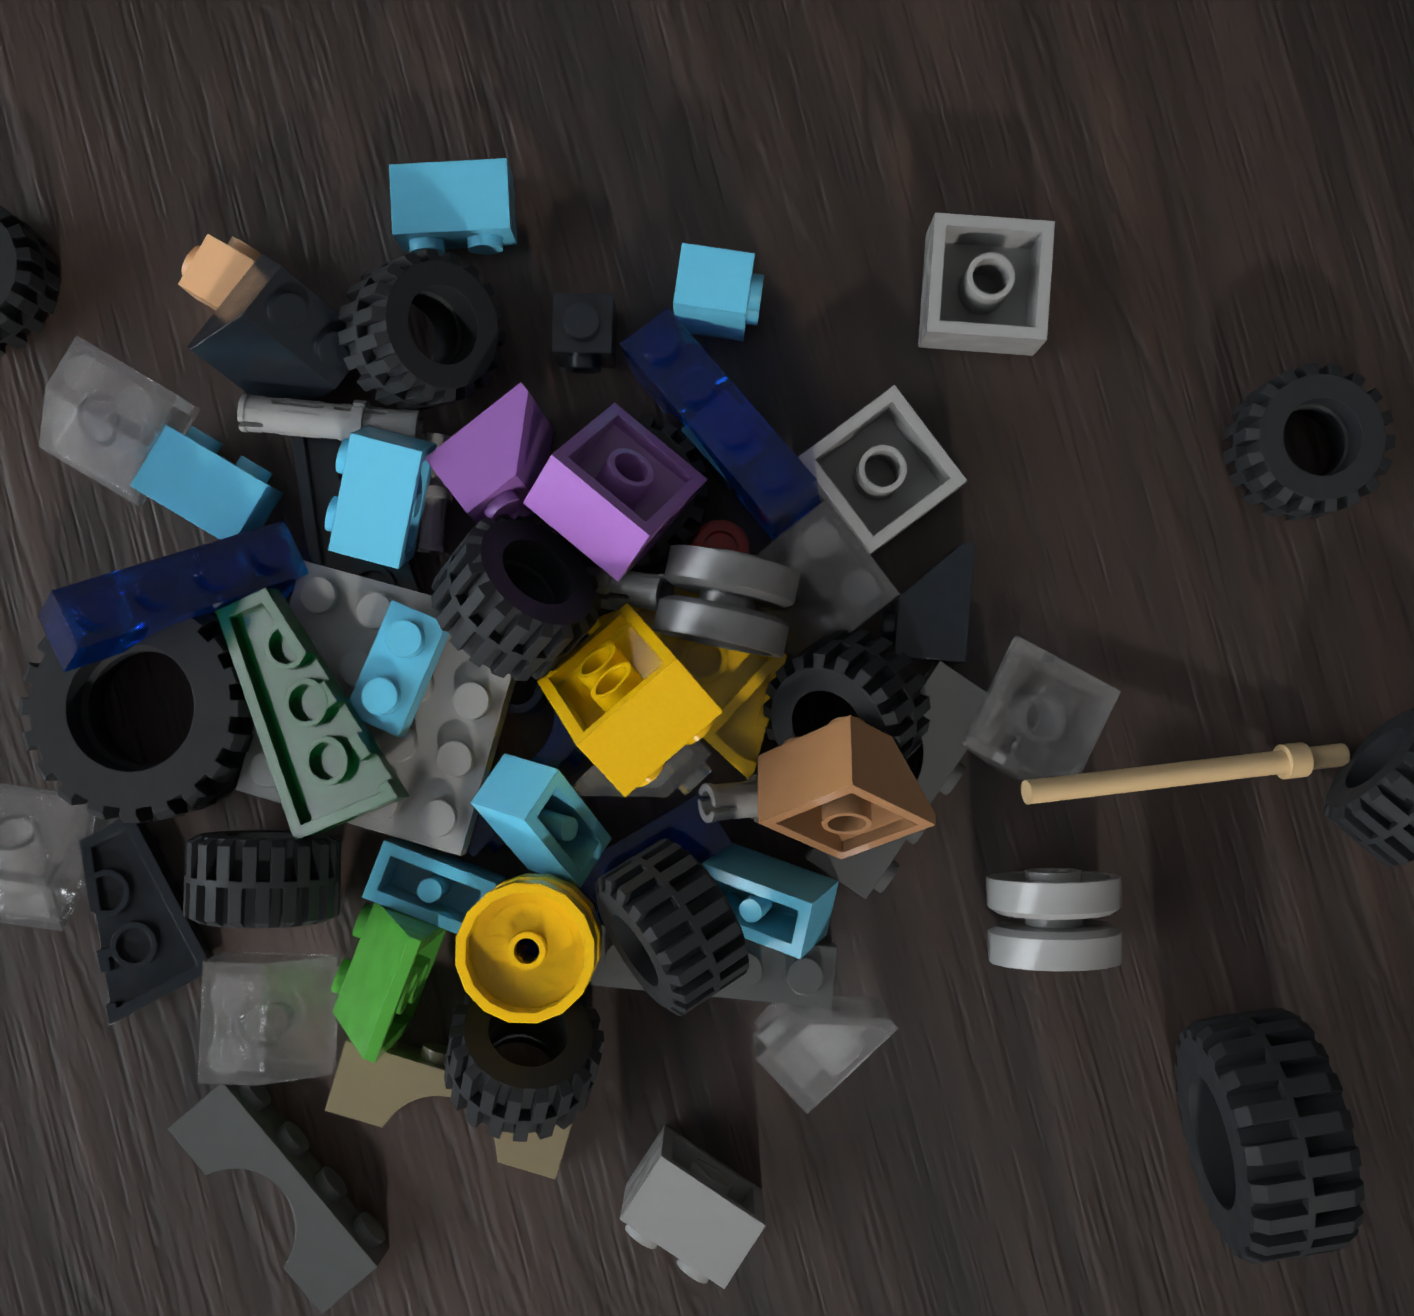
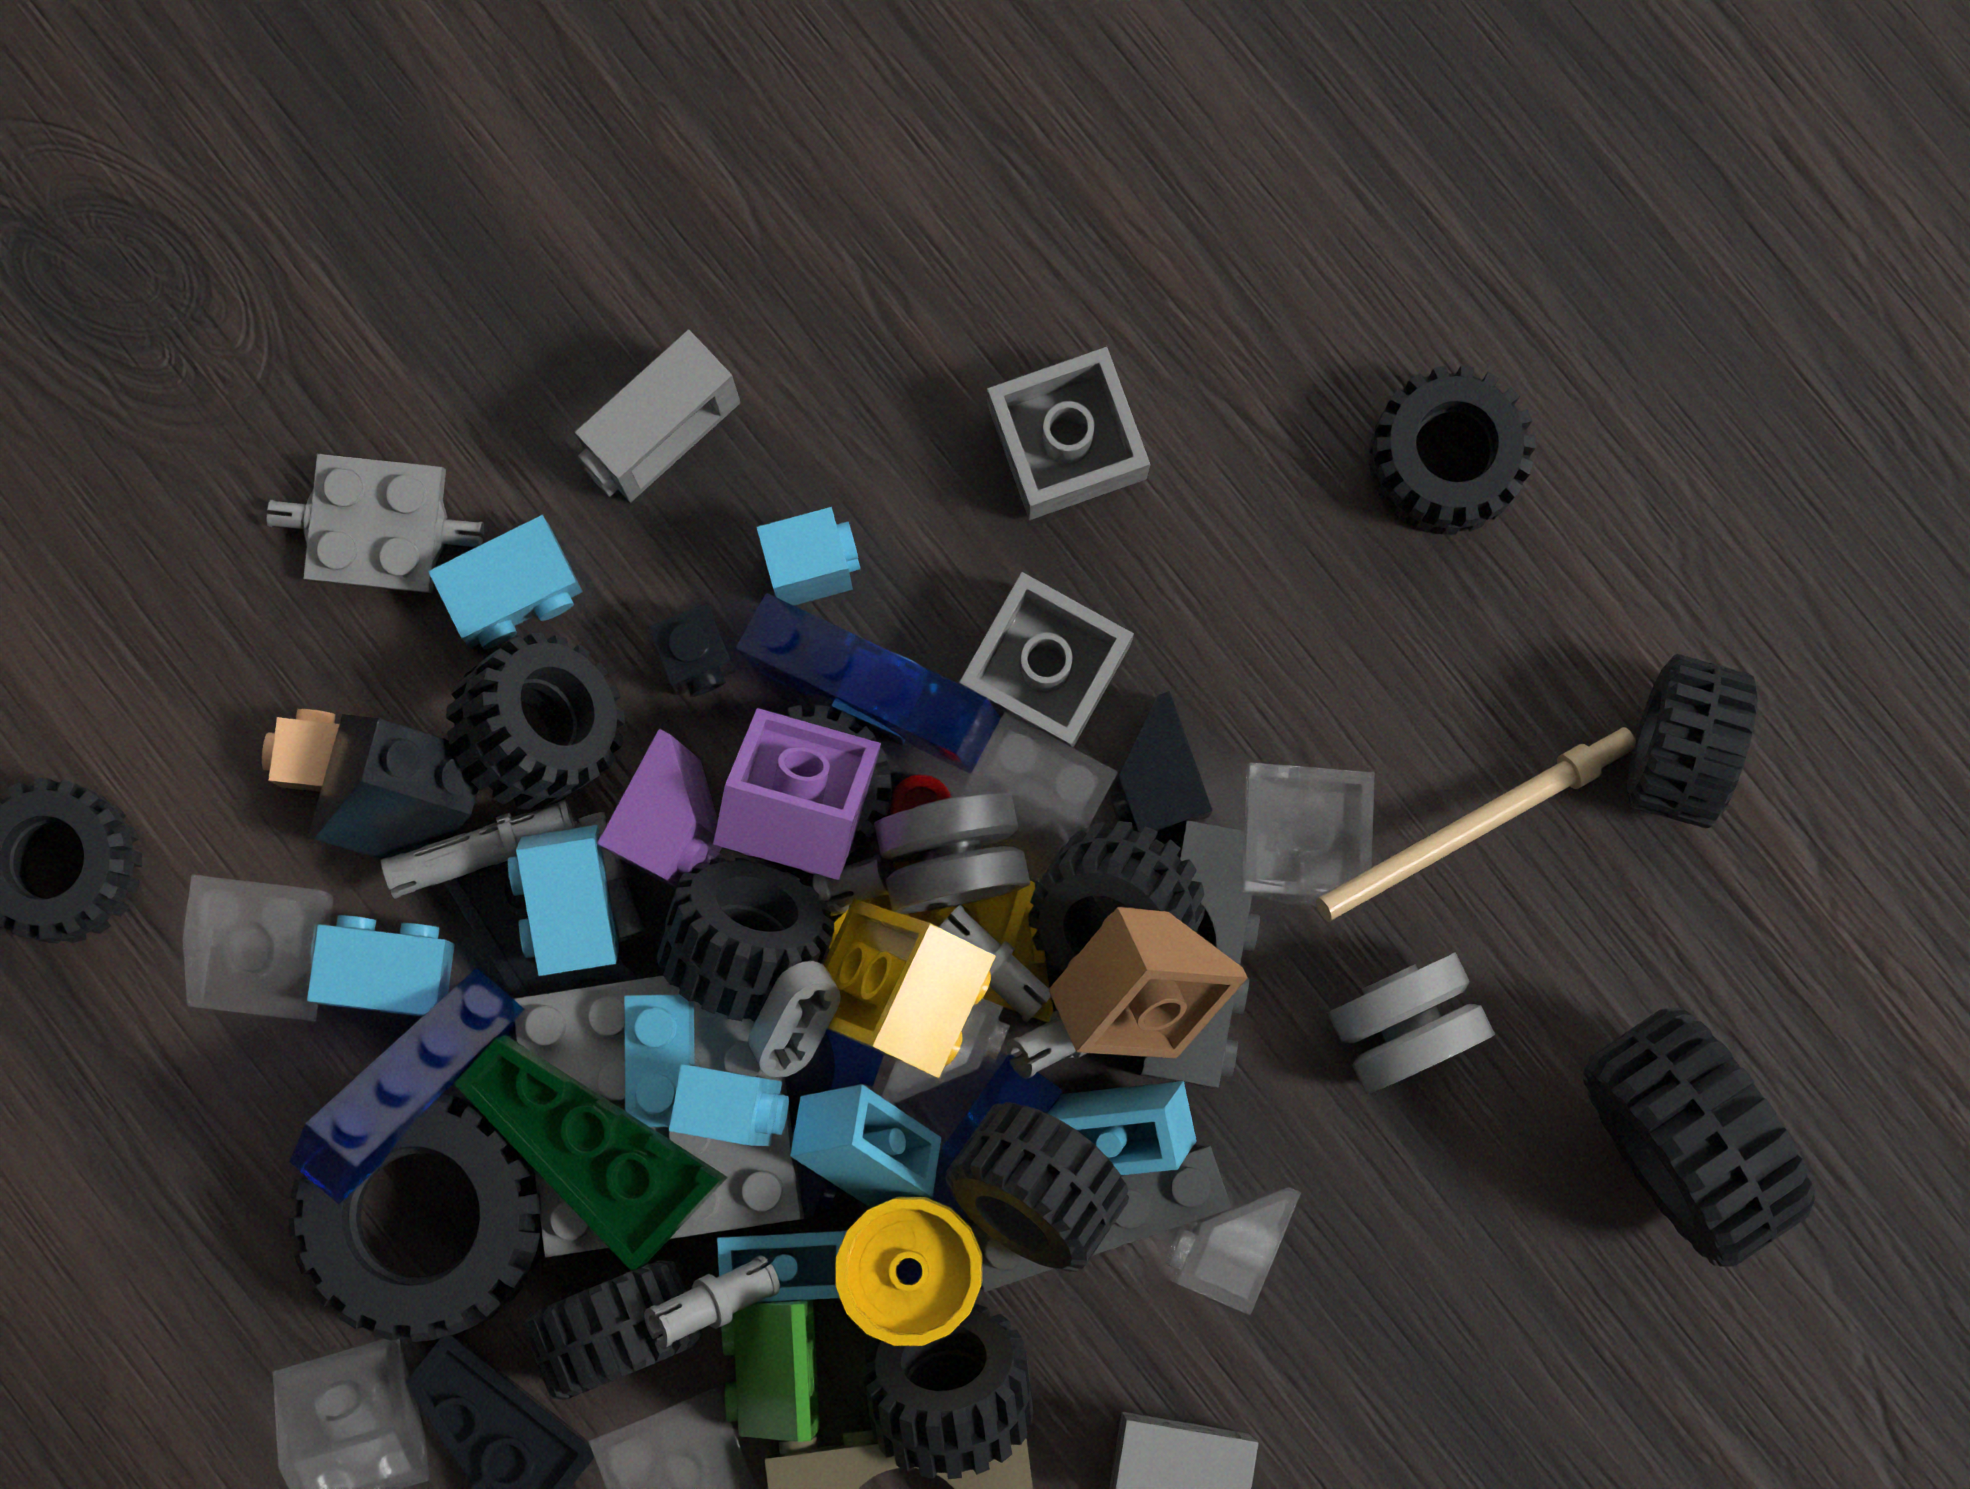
camera: 30 degrees left, 5 degrees down
(348, 897) = (711, 1301): none -> light grey pin
(366, 107) = (374, 523): none -> light grey plate
(431, 737) = (728, 1106): none -> medium azure brick
(517, 695) = (794, 1019): none -> light grey beam
(640, 116) = (656, 418): none -> light grey window
(730, 726) = (1008, 975): none -> light grey pin

